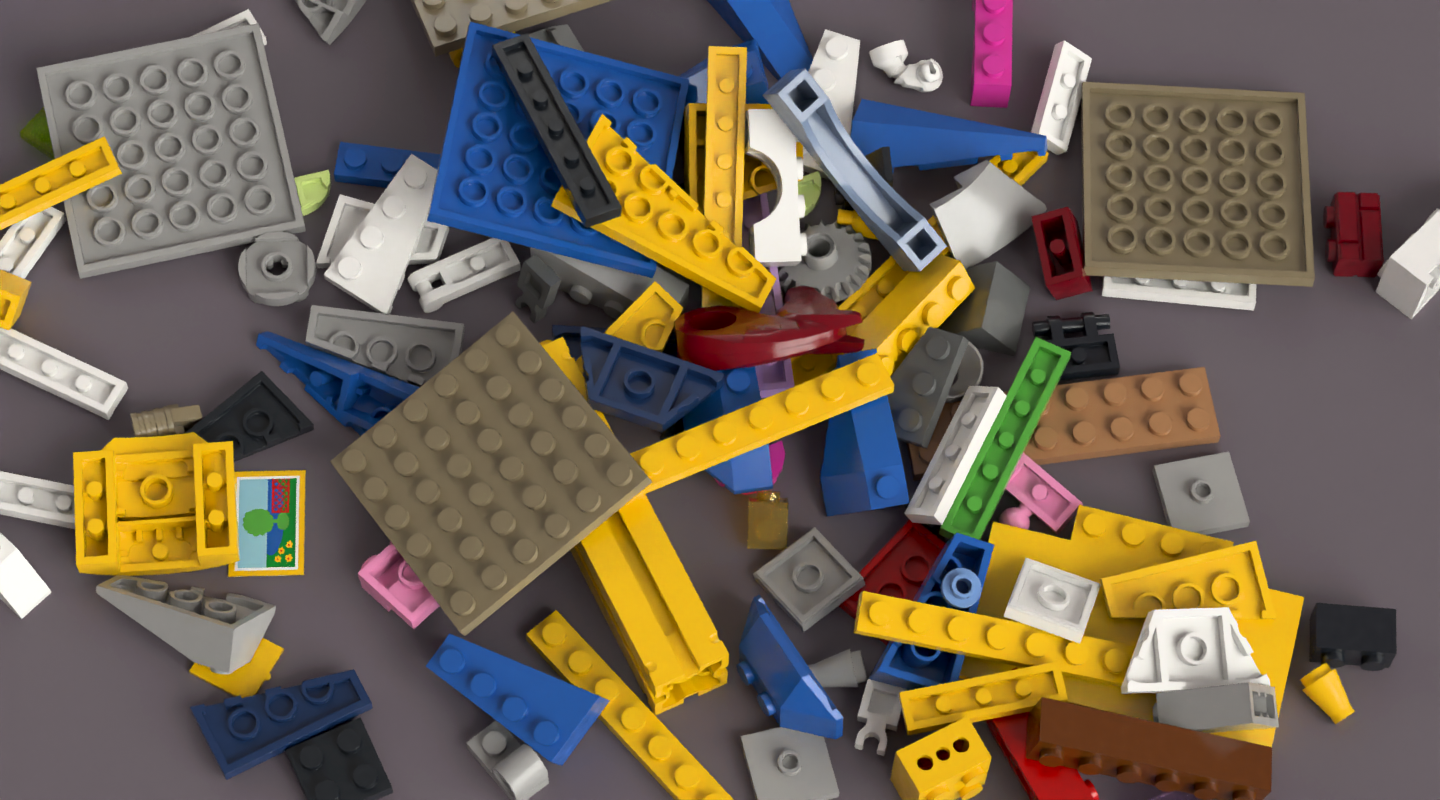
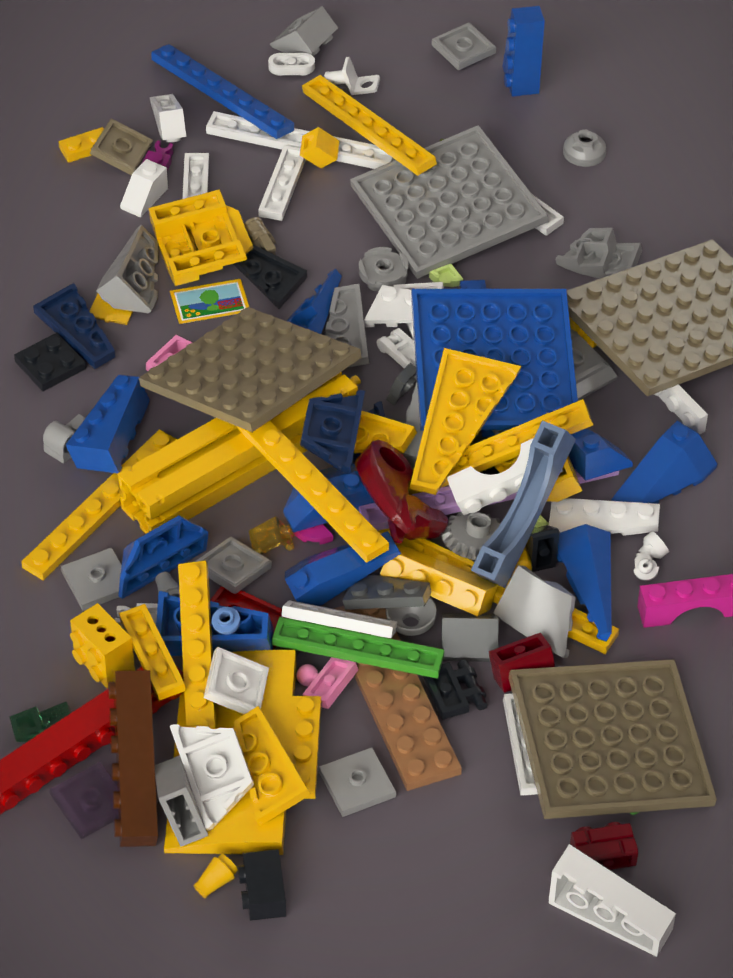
camera: 80 degrees right, 15 degrees down
(556, 130) = (492, 337): black plate -> none
(1061, 96) = (656, 647): white plate -> none

